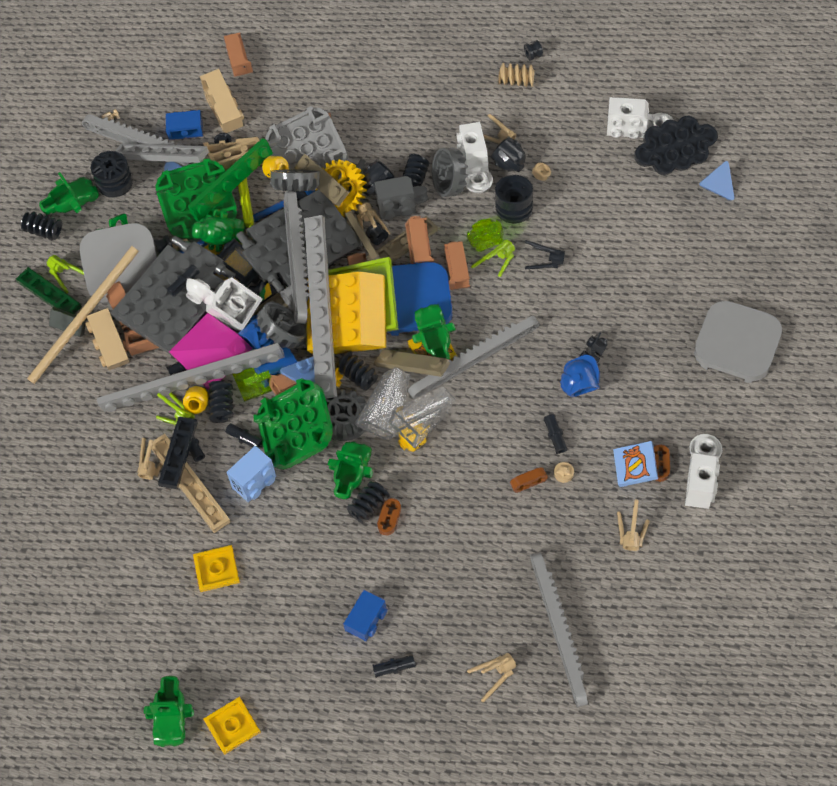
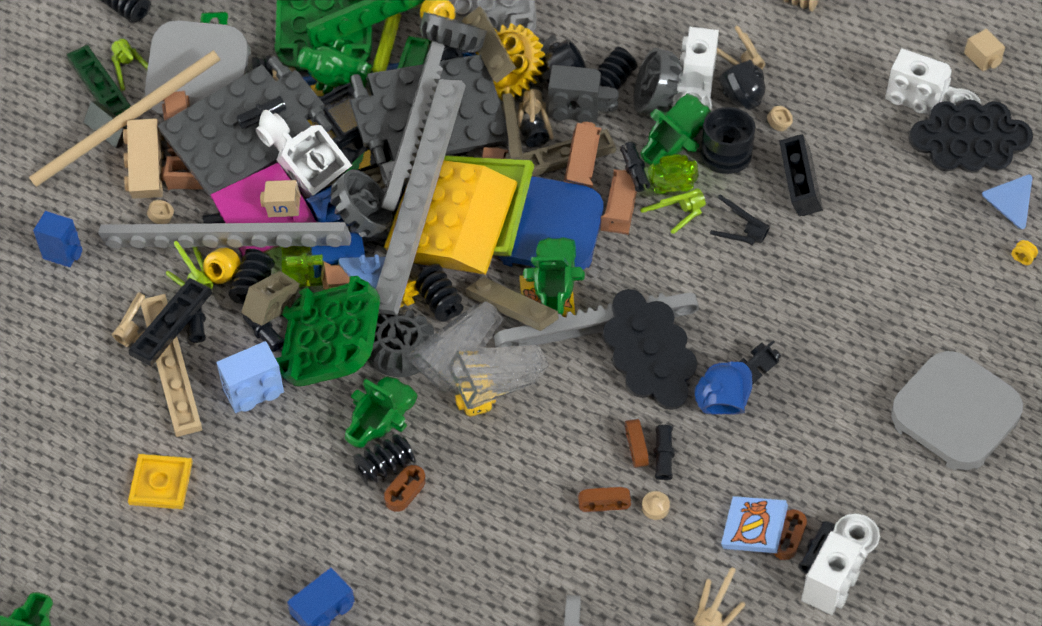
camera: 15 degrees right, 5 degrees down
(70, 418) = (57, 239): none -> blue brick
(134, 374) = (160, 212): none -> tan tile
(223, 339) = (281, 198): none -> tan brick
(242, 413) = (269, 297): none -> dark tan brick
(269, 202) = (414, 52): none -> green tile
(459, 238) = (635, 166): none -> black pin
(475, 202) = (675, 129): none -> green piece
(519, 364) = (650, 349): none -> black plate
(534, 433) = (636, 443): none -> dark orange beam
(573, 208) = (800, 175): none -> black brick
(661, 80) = (984, 50): none -> tan brick
(682, 476) = (810, 556): none -> black pin
(741, 216) = (1024, 252): none -> yellow bush

